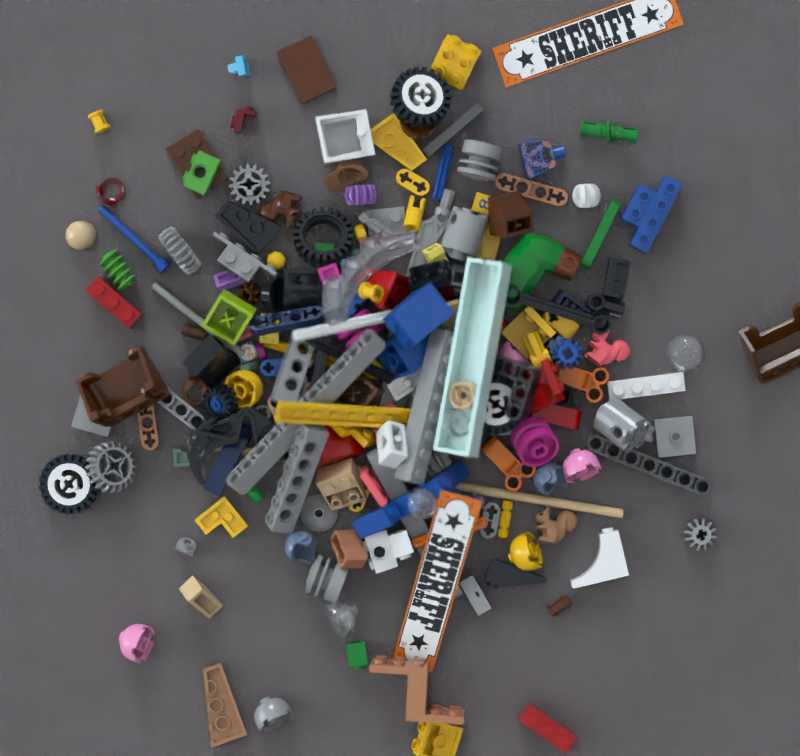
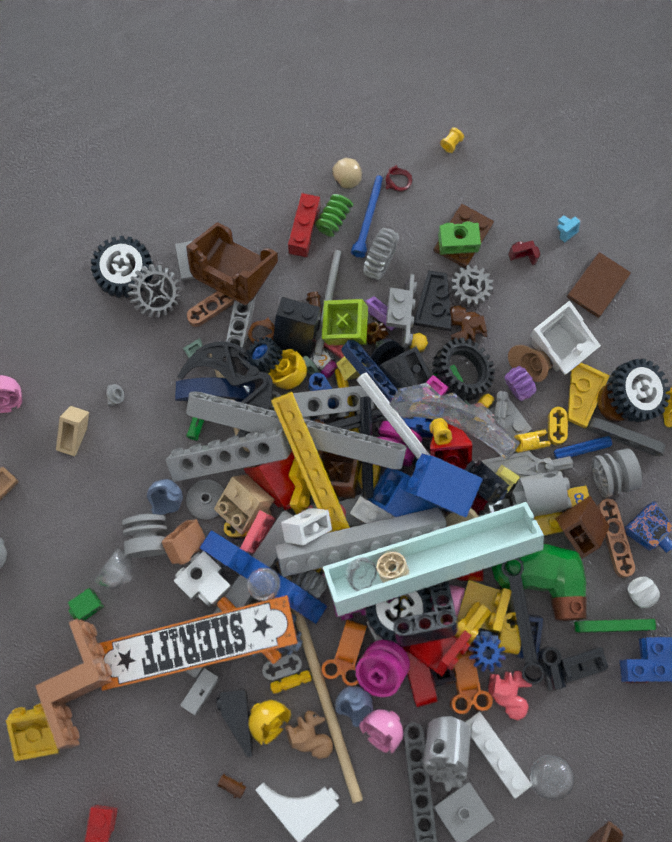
camera: 65 degrees right, 15 degrees down
(221, 513) = (161, 411): yellow plate -> none

